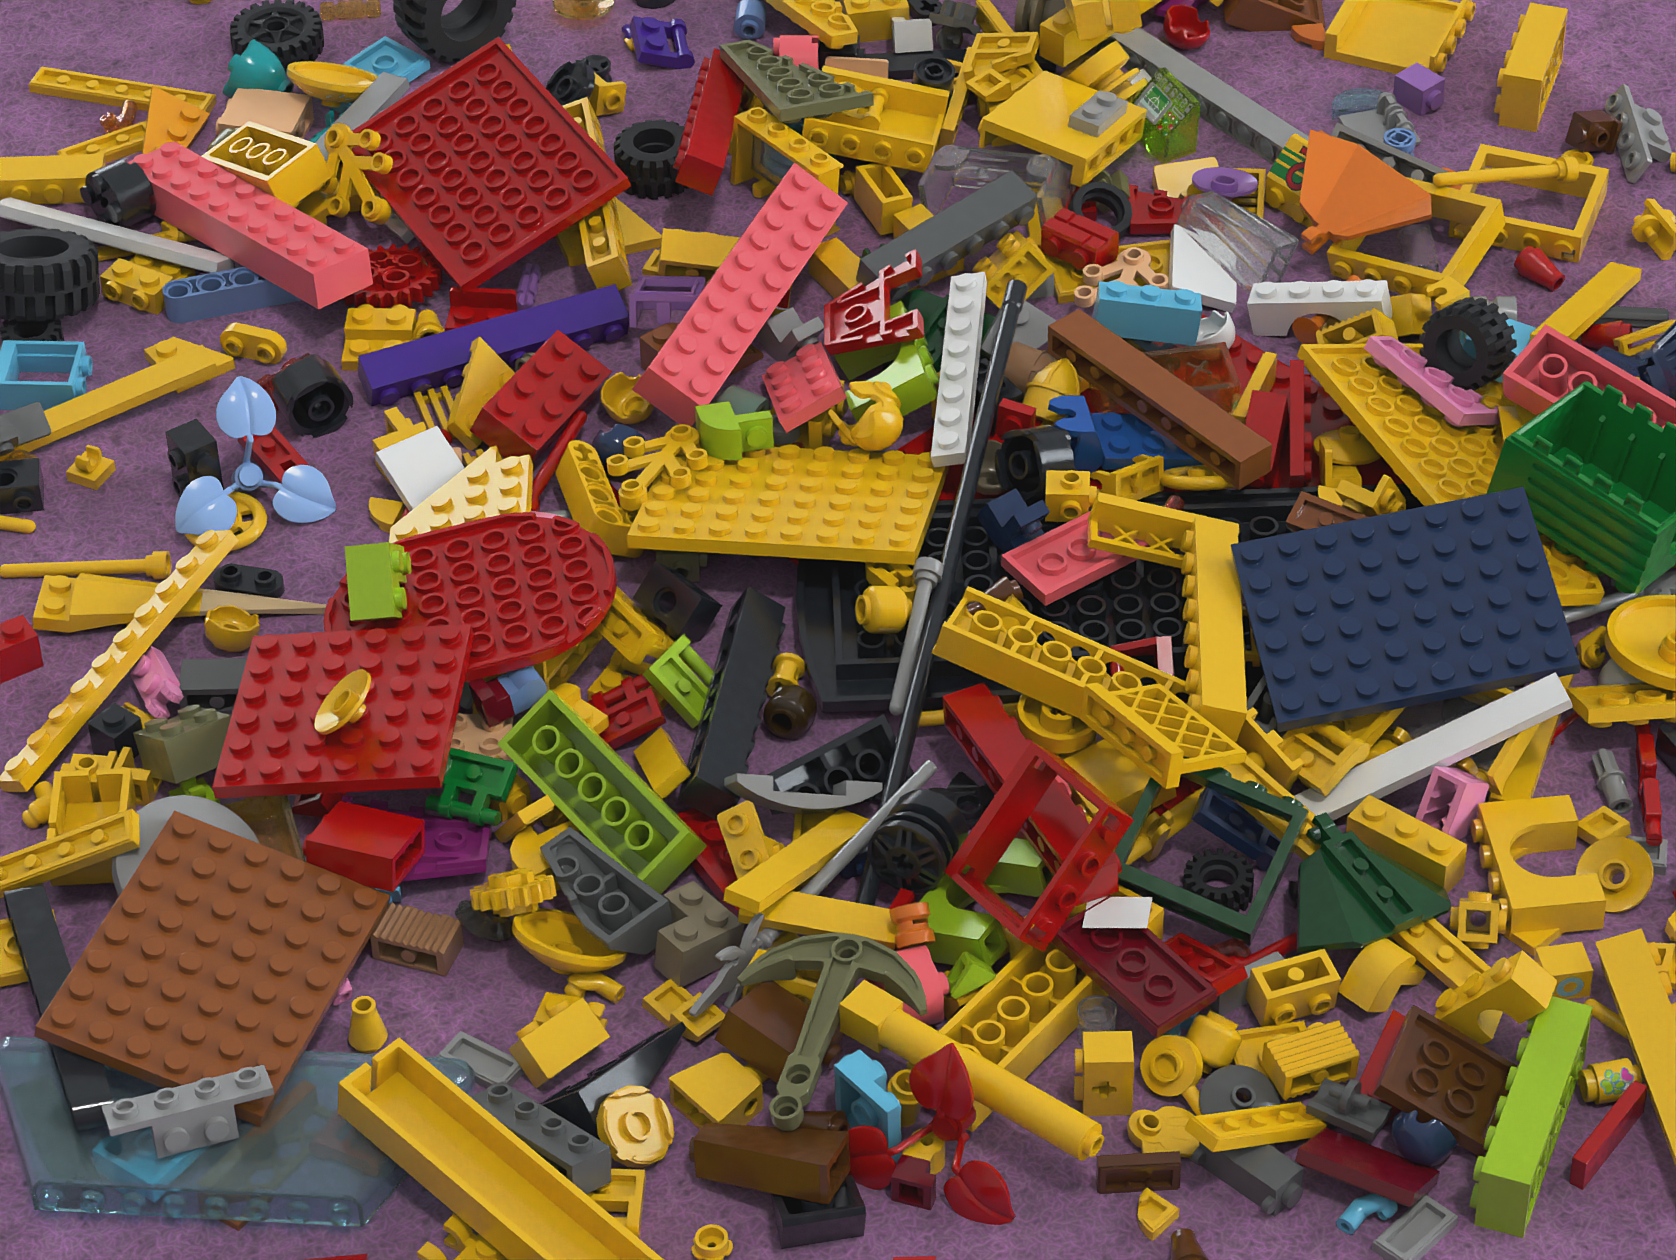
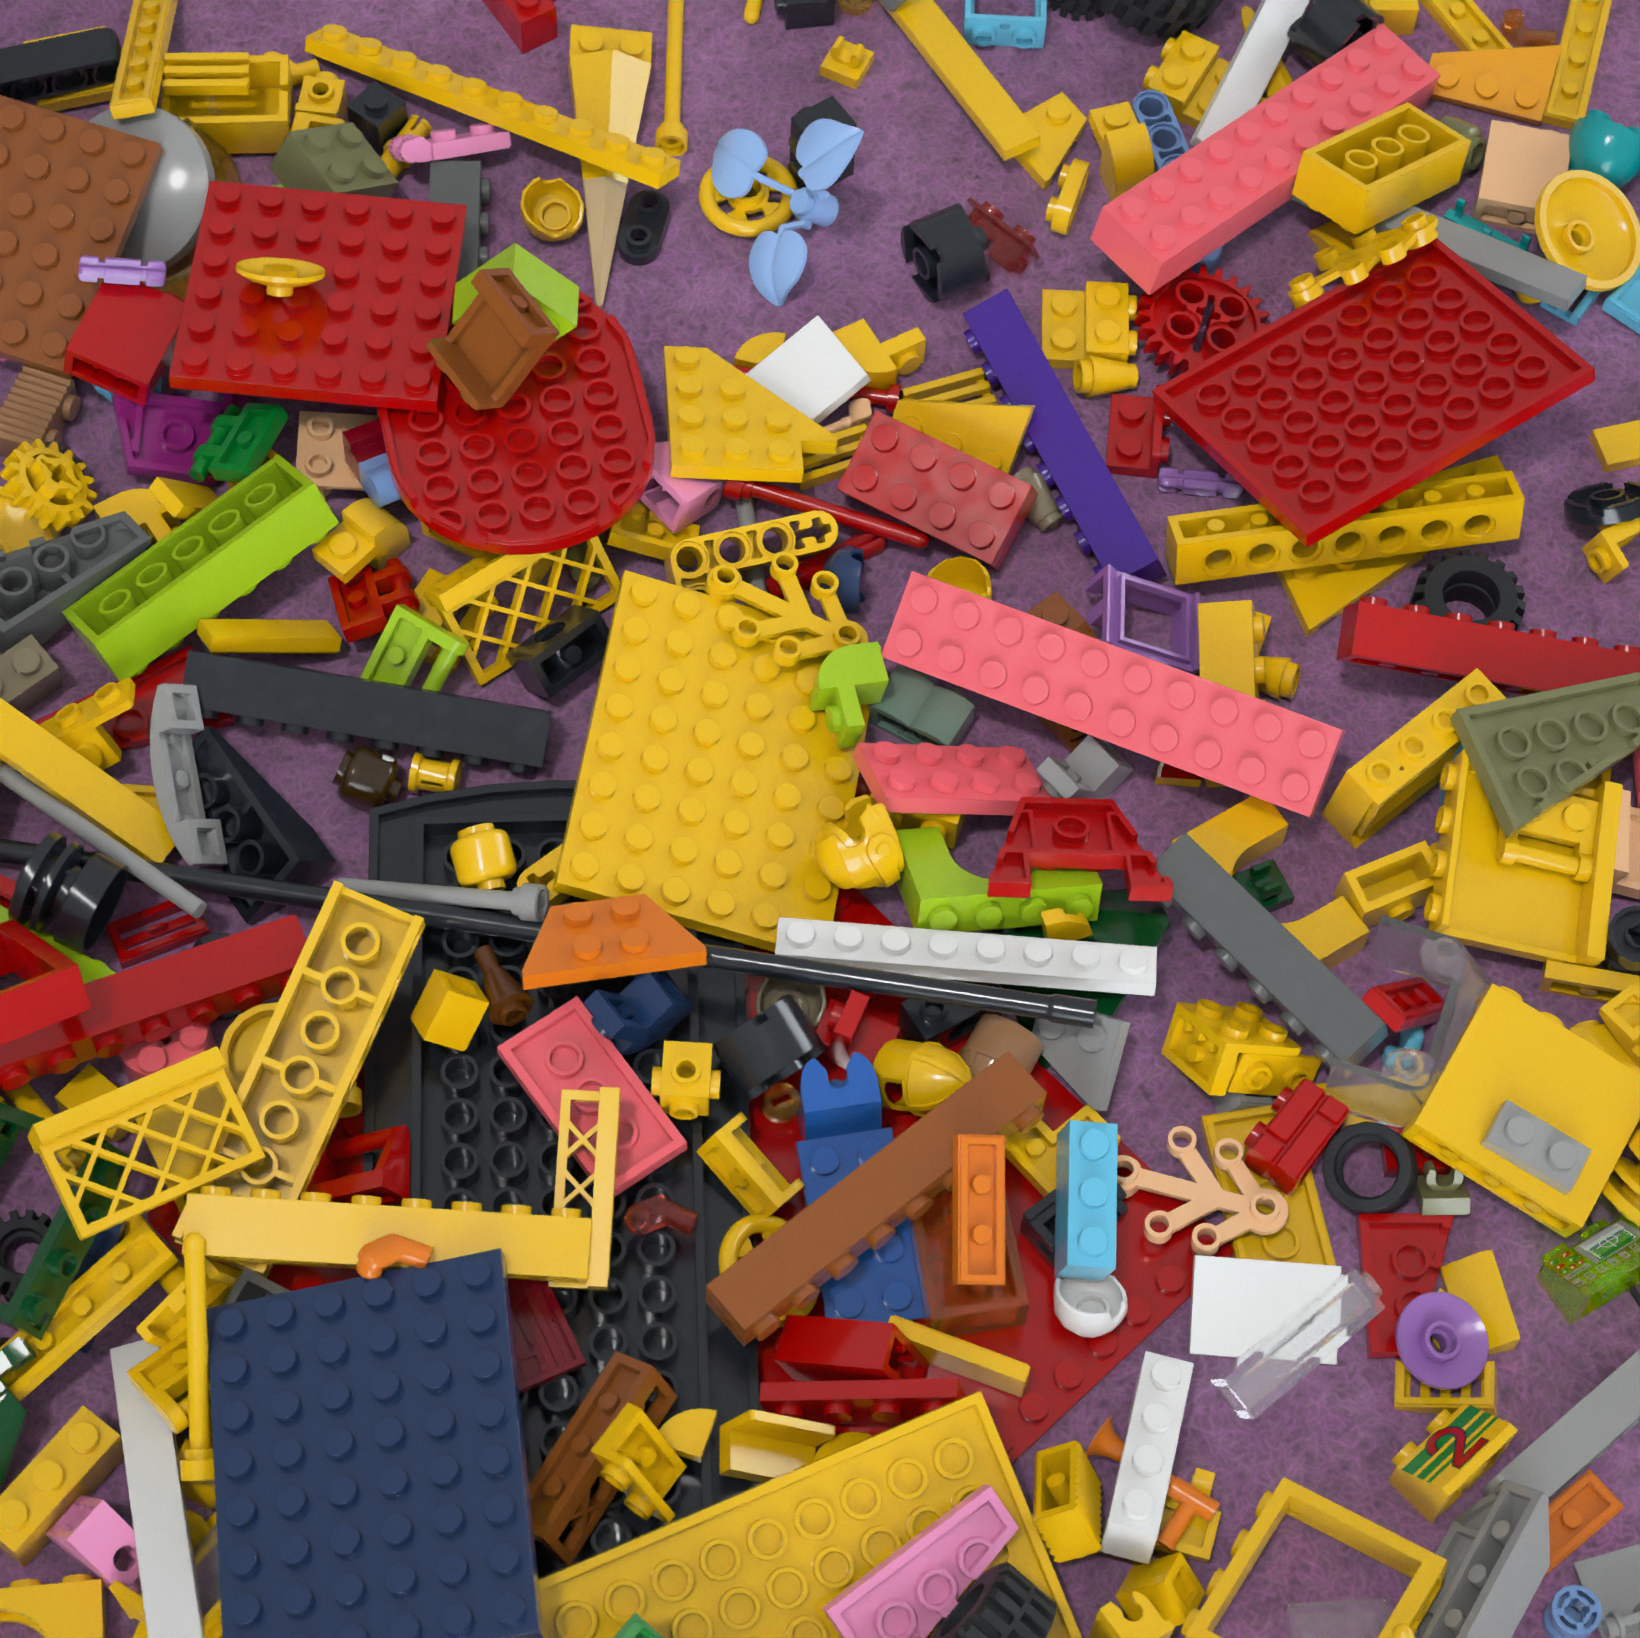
camera: 85 degrees right, 20 degrees up
(75, 795) = (207, 68): none -> yellow tile
(221, 303) = (1124, 147): none -> yellow brick
(273, 454) = (861, 235): red plate -> none
(314, 825) = (122, 271): none -> medium lavender axle
(429, 570) = (494, 340): none -> dark orange panel
(931, 332) = (1065, 926): none -> yellow tile
(964, 523) = (608, 941): none -> orange wing
(982, 179) = (1405, 1003): none -> red tile
(1167, 344) = (978, 1209): none -> orange tile
(1237, 606) = (388, 1250): none -> orange arm
(1354, 193) = (1372, 1514): orange panel -> none
(1389, 733) = (199, 1457): none -> yellow piece

